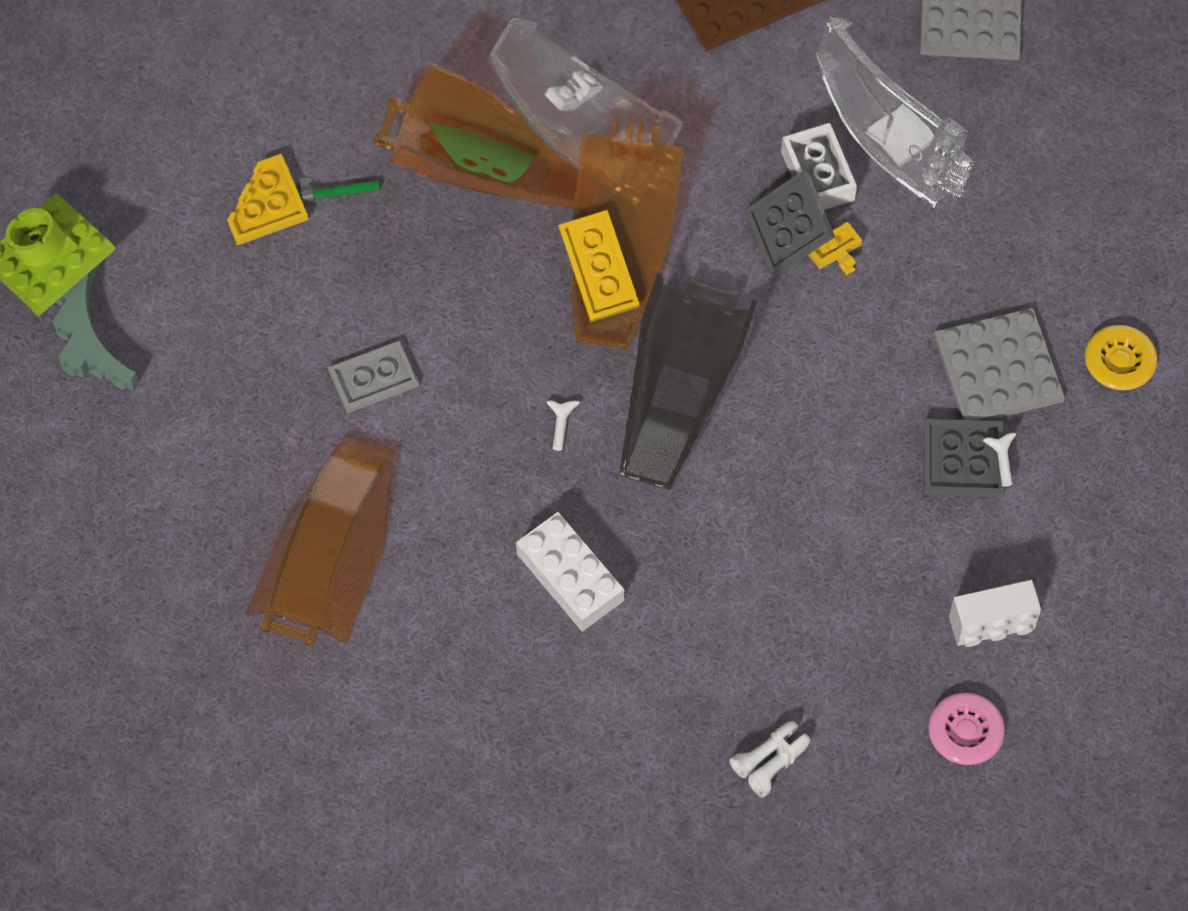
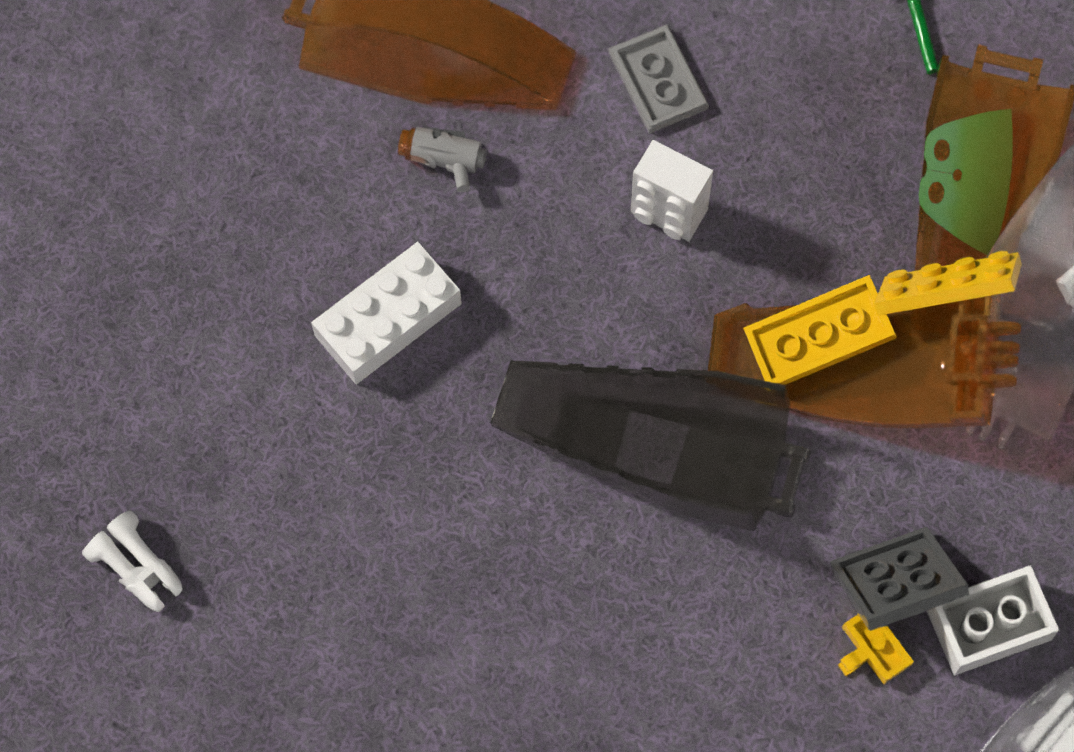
camera: 90 degrees right, 5 degrees up
(430, 528) = (443, 149): none -> light grey piece
(484, 357) = (670, 191): none -> white brick
(562, 412) = (615, 302): white piece -> none
(576, 165) = (948, 283): none -> yellow plate

